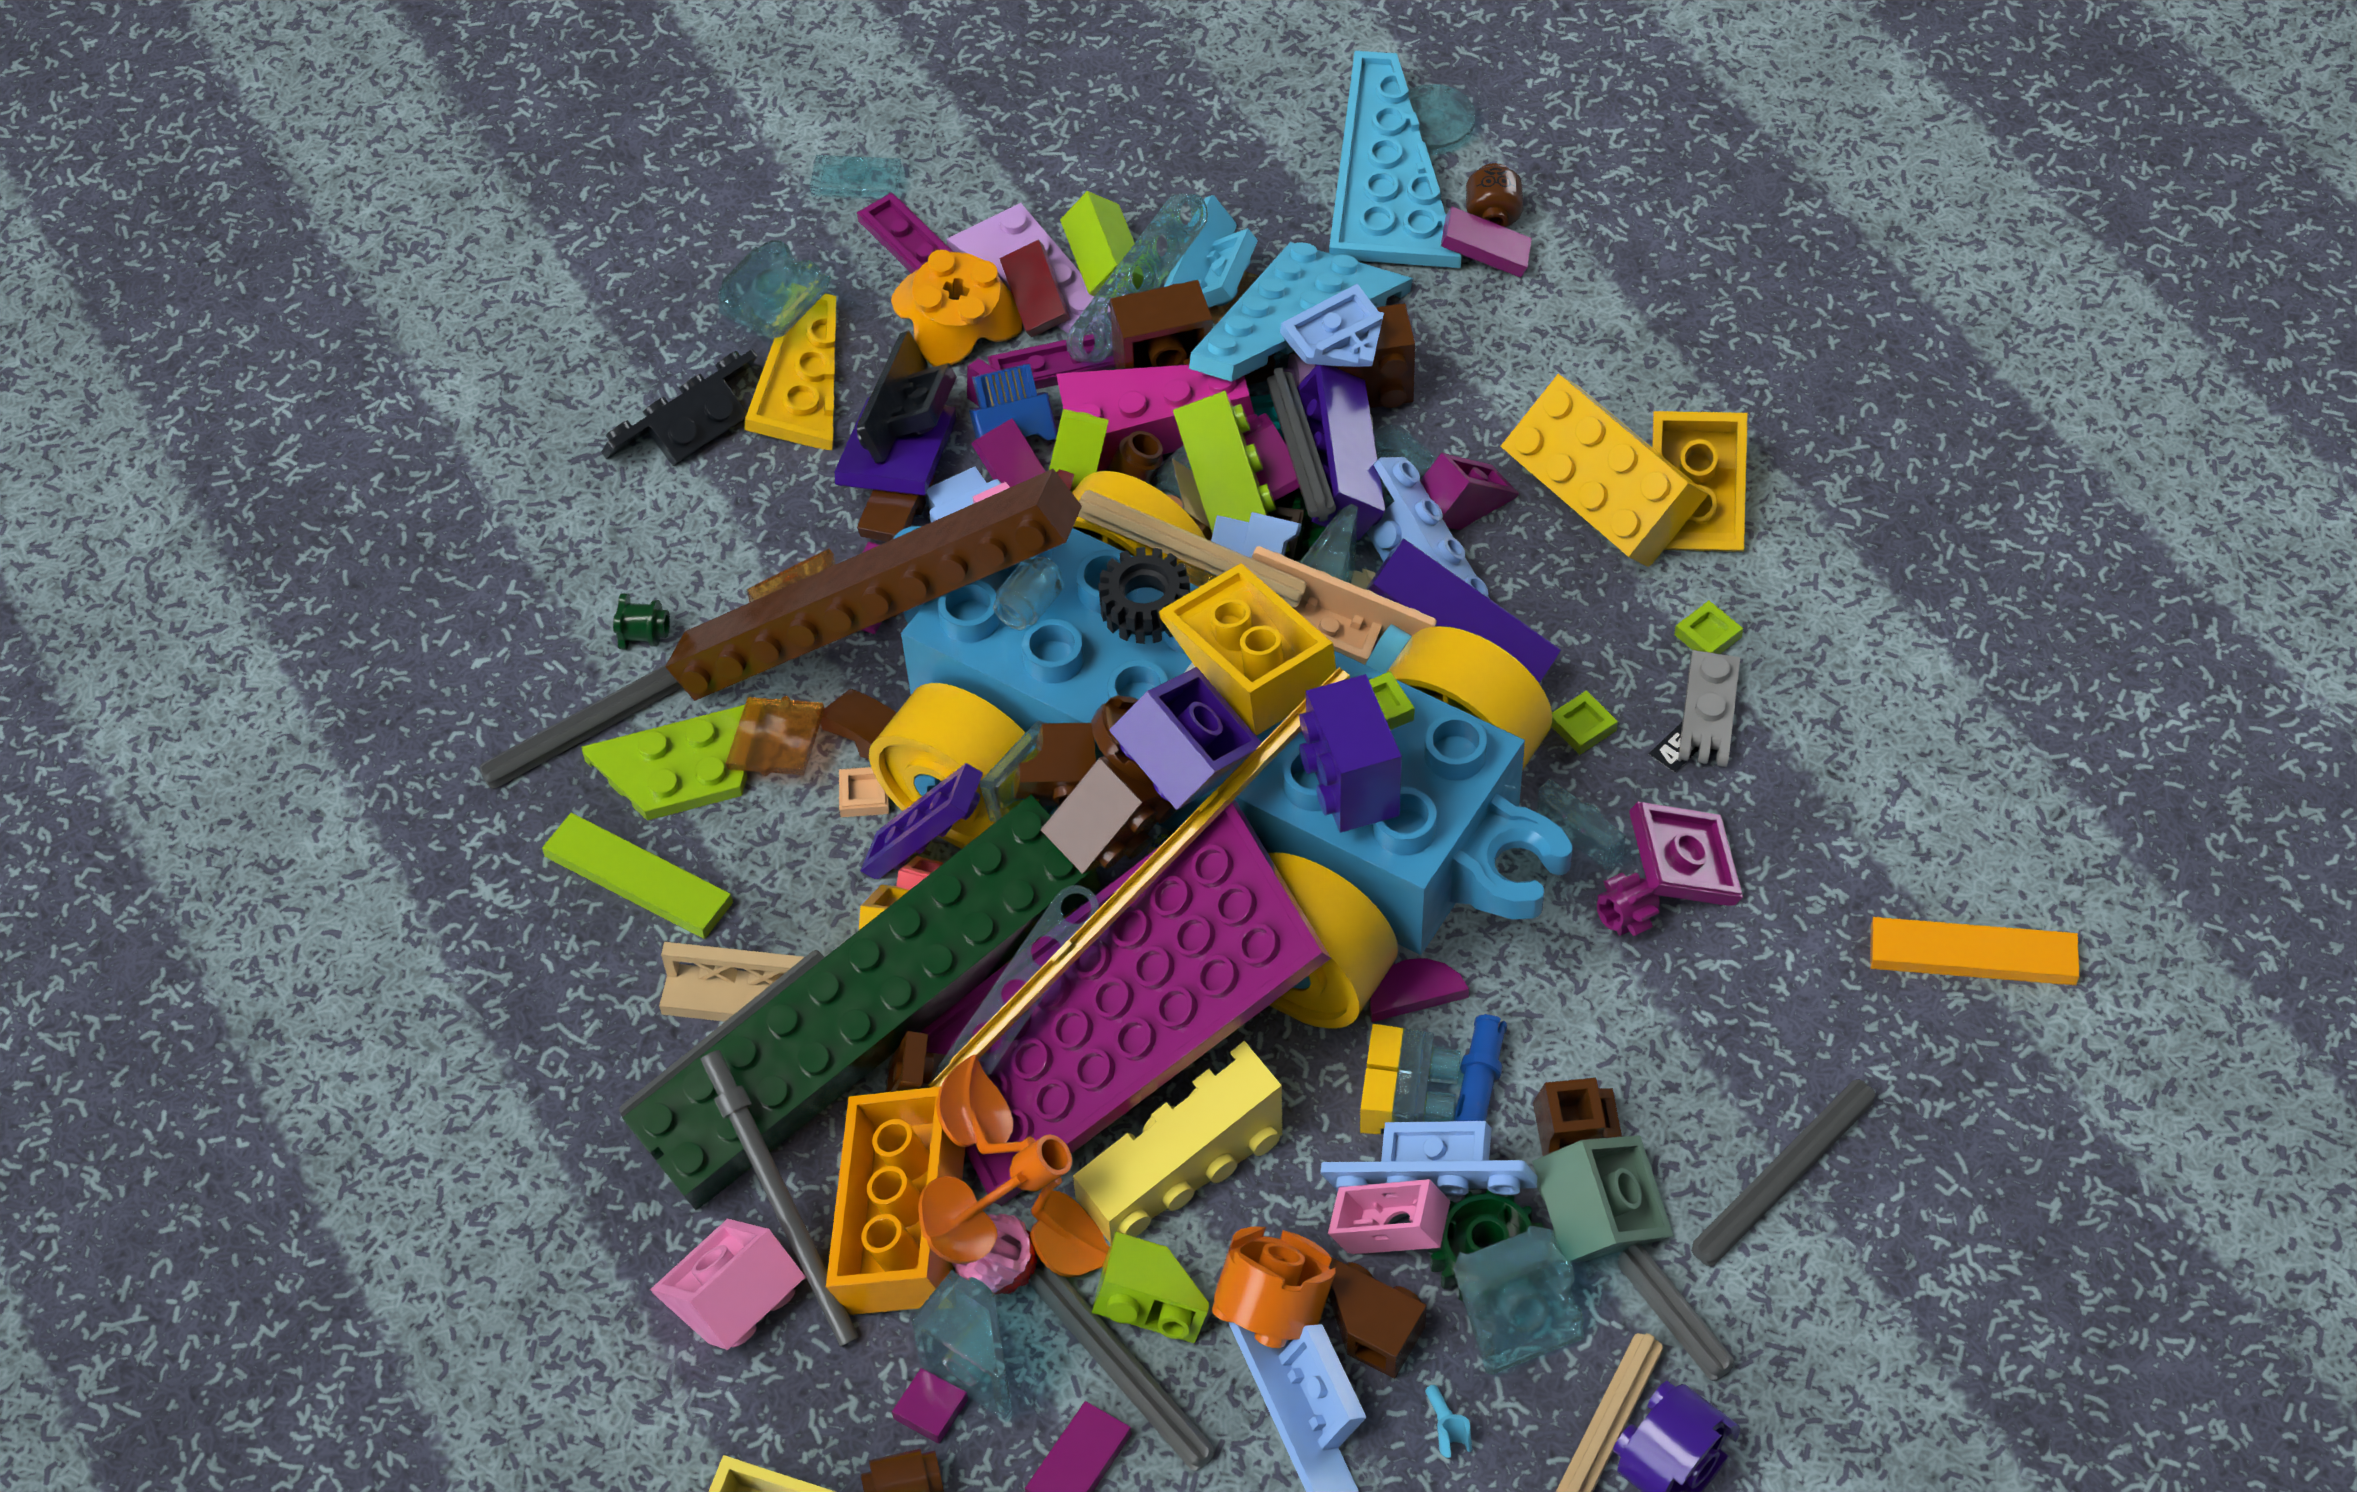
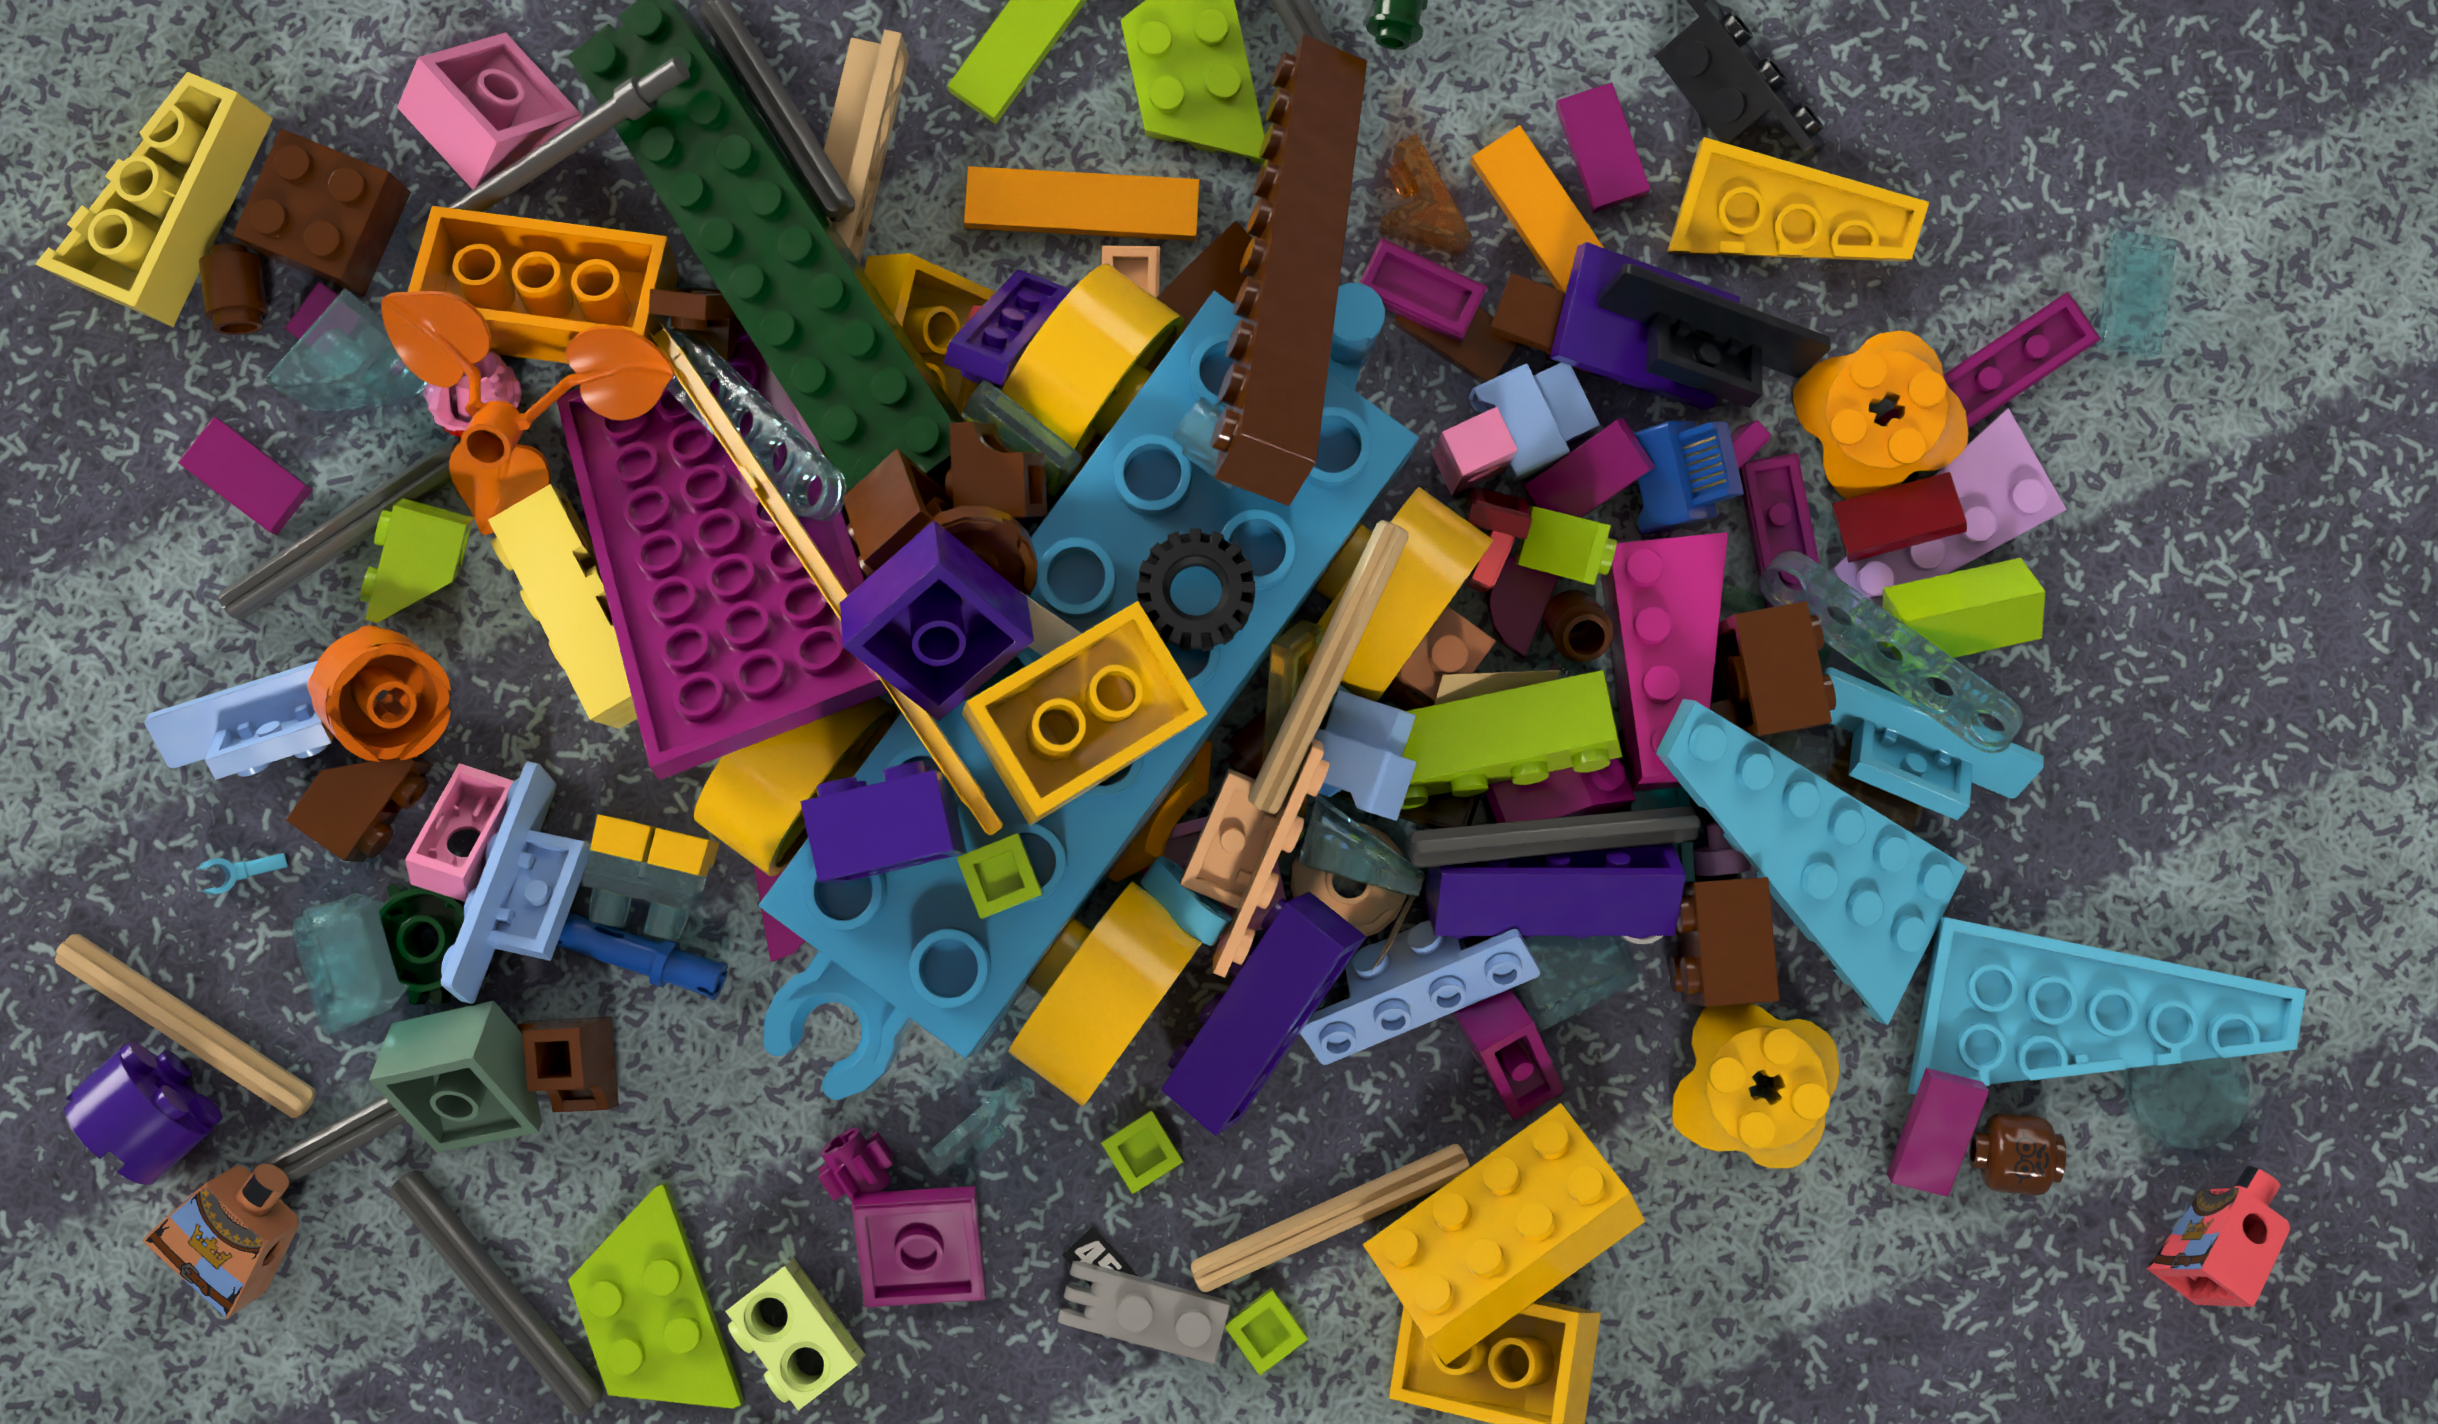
camera: 90 degrees right, 30 degrees up
(749, 491) = (1602, 147): none -> magenta tile
(771, 289) = (1911, 170): clear light blue slope -> none
(775, 736) = (1203, 169): clear orange piece -> none
(801, 526) = (1534, 203): none -> light orange tile
(803, 839) = (1081, 203): none -> light orange tile
(828, 1405) = (322, 212): none -> reddish brown brick
(1336, 331) = (1726, 904): light blue slope -> none
(1374, 552) = (1395, 929): none -> tan sticker
(1469, 341) = (1715, 1101): none -> yellow brick
(1539, 84) = (2225, 1243): none -> coral torso
(1614, 598) = (1329, 1218): none -> tan axle
(1766, 931) = (808, 1324): none -> yellowish green brick
(1771, 1371) = (229, 1236): none -> torso
(1777, 1052) = (652, 1312): none -> lime wing

